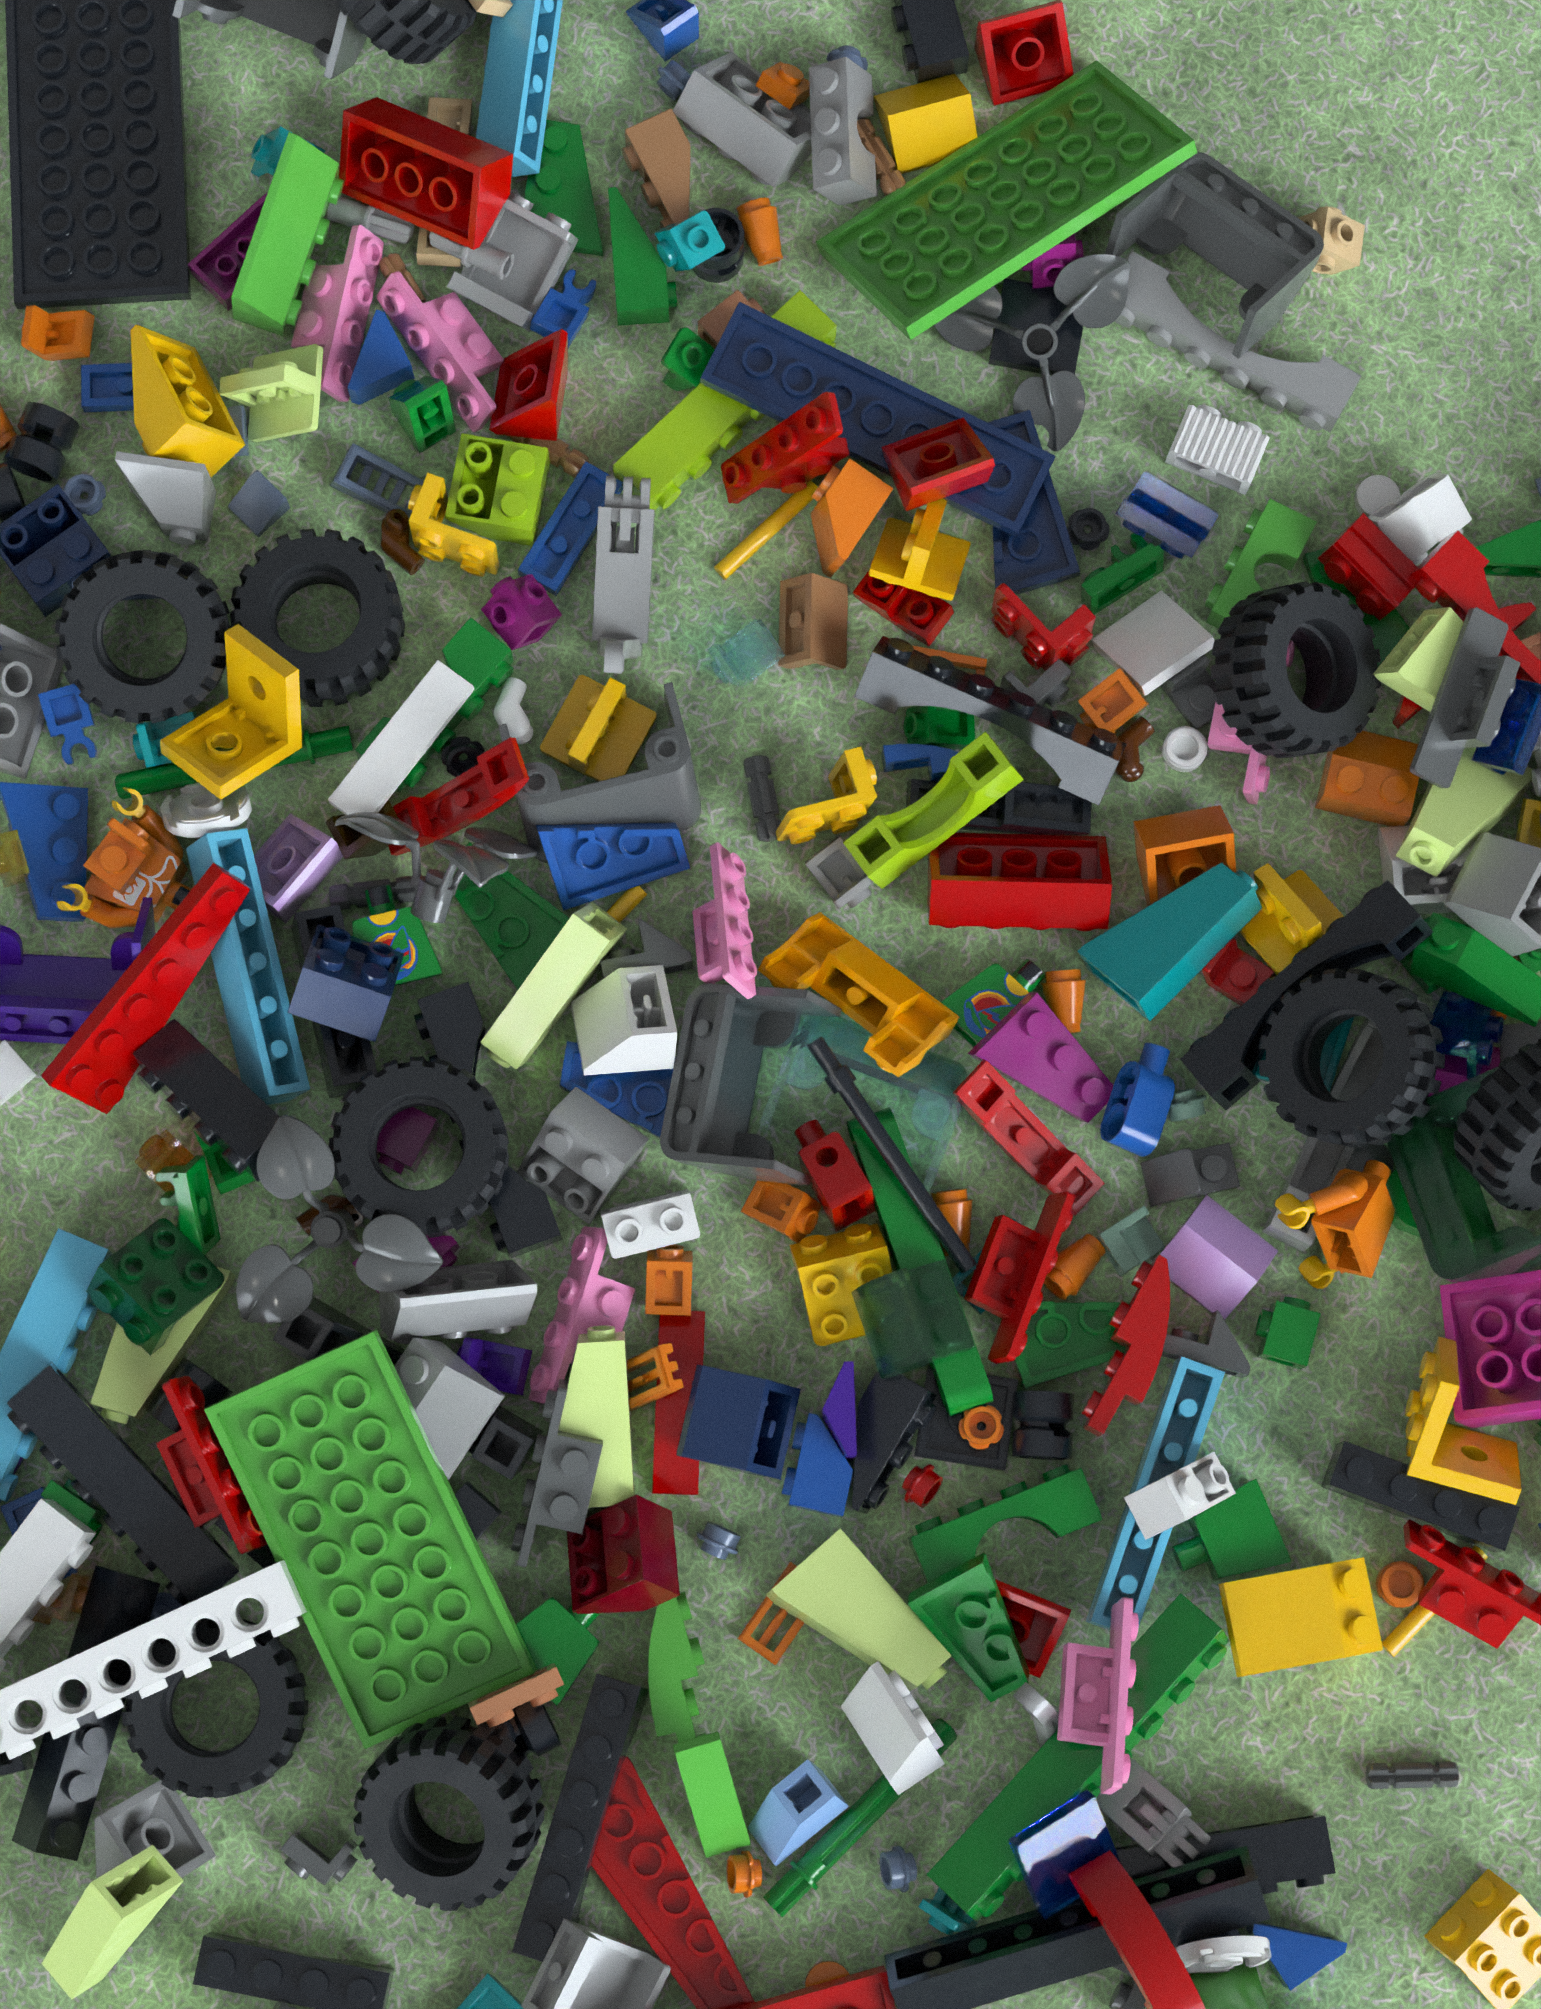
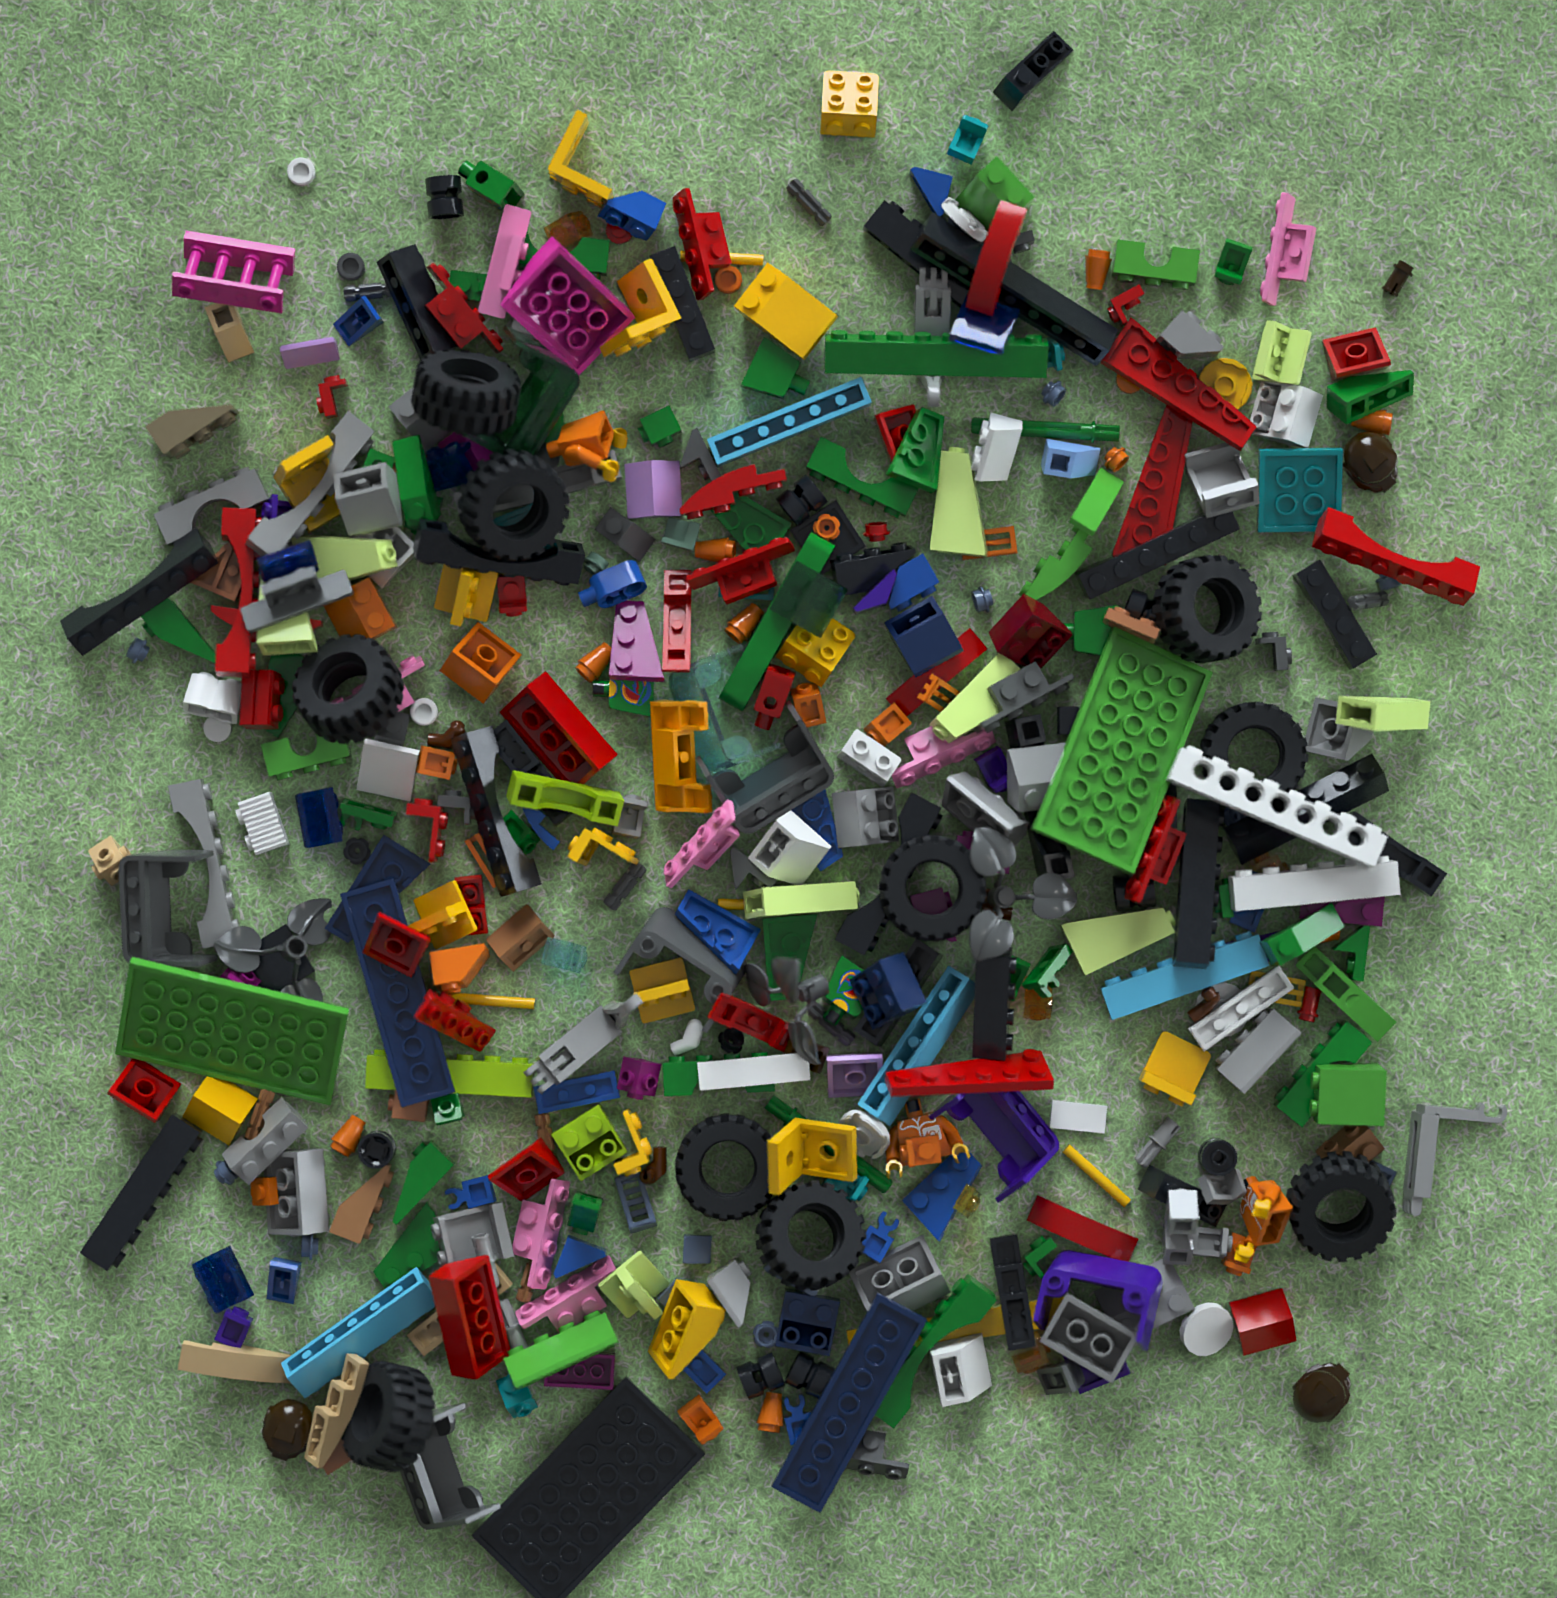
camera: 130 degrees left, 10 degrees up
(153, 1283) = (1097, 951): dark green bracket -> none
(689, 242) = (392, 1158): teal bracket -> none
(841, 1080) = (731, 726): black bar -> none
(1096, 1695) = (904, 371): bright pink bracket -> none
(1172, 939) = (525, 635): teal slope -> none
(1180, 1495) = (782, 410): white slope -> none

